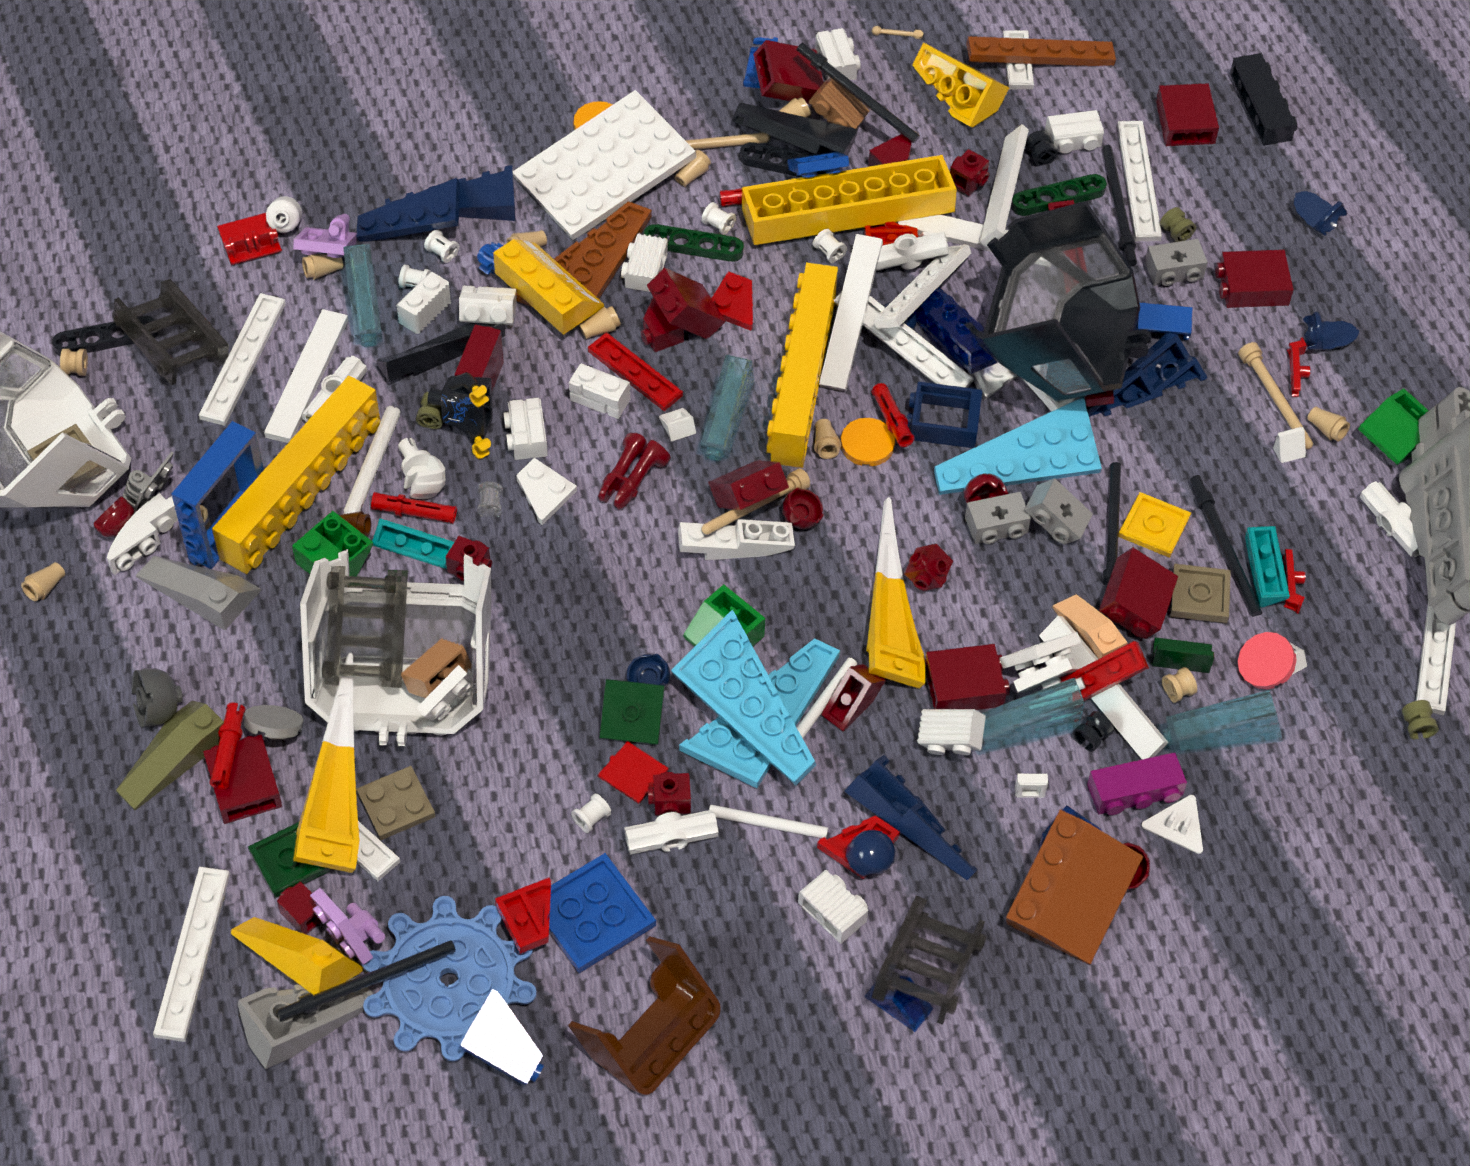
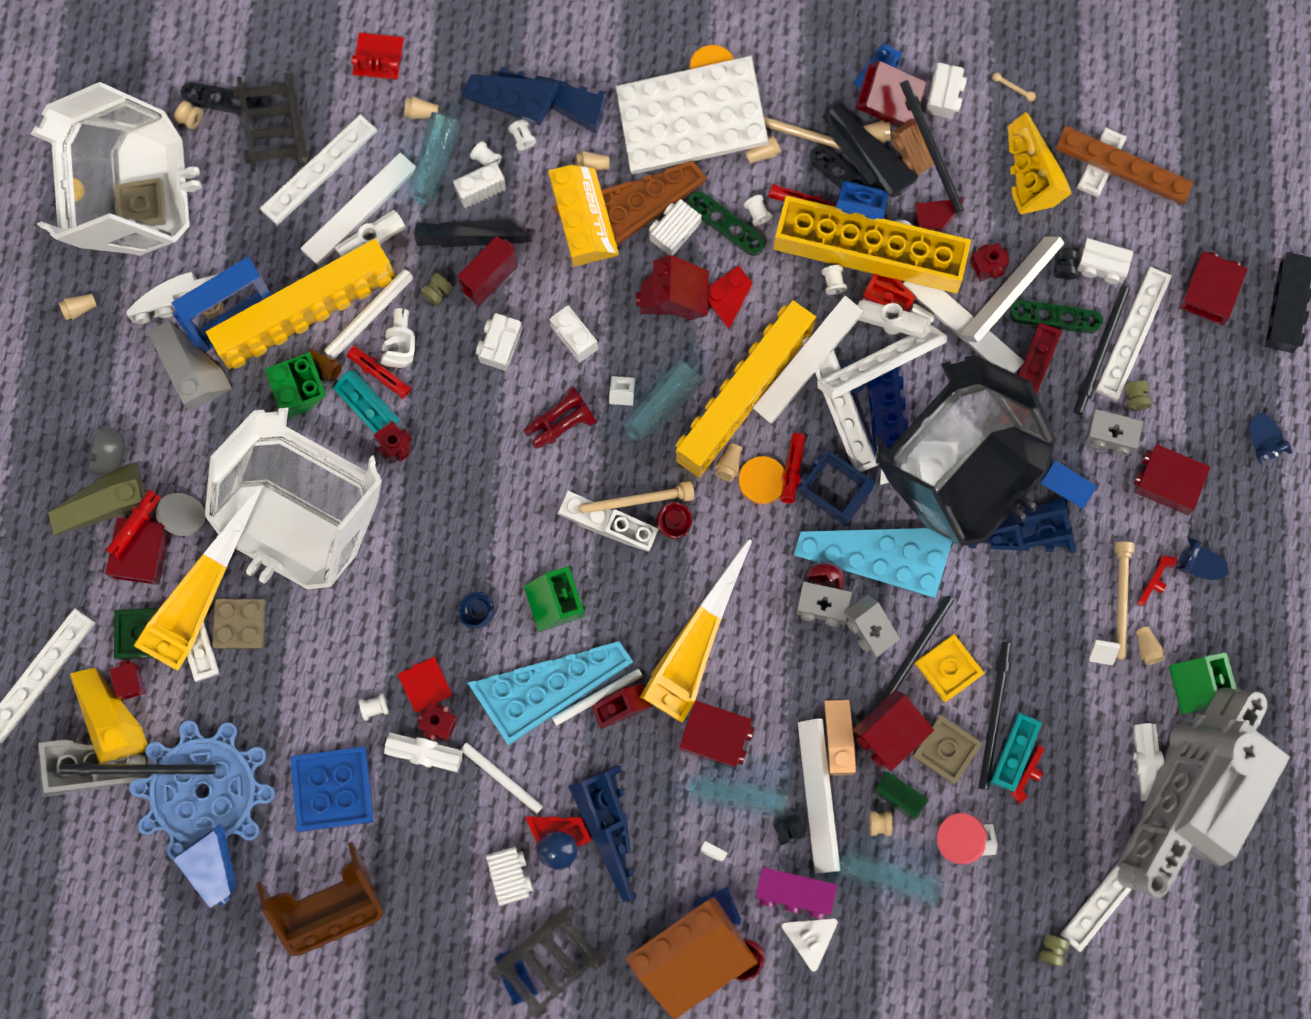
camera: 30 degrees right, 20 degrees up
(114, 518) = (151, 276): dark red hair -> none
(141, 486) = (181, 266): light grey hinge -> none
(291, 217) = (412, 48): white head -> none
(326, 241) = (432, 89): lavender plate -> none
(349, 931) = (142, 718): lavender plate -> none
(390, 642) = (289, 495): clear smoke fence -> none
(434, 667) = (314, 532): medium nougat brick -> none
(437, 702) = (302, 566): white plate -> none
(468, 406) = (459, 304): black torso -> none
(486, 257) = (553, 161): blue gear -> none
(487, 305) = (527, 211): white brick -> none
(489, 499) = (439, 393): clear bush -> none
(527, 914) = (280, 772): red wing -> none
(544, 489) = (486, 402): white wing -> none
(600, 323) = (609, 268): tan cone -> none
(632, 711) = (446, 637): dark green plate -> none
(636, 371) = (614, 325): red tile -> none
(737, 688) = (531, 661): medium azure wing -> none
(748, 484) = (637, 483): dark red brick -> none
(928, 567) = (741, 623): dark red brick -> none
(951, 730) = (675, 778): white brick -> none
(1040, 652) = (782, 745): white plate -> none
(1047, 676) = (775, 772): white plate -> none
(1110, 670) = (822, 789): red tile -> none

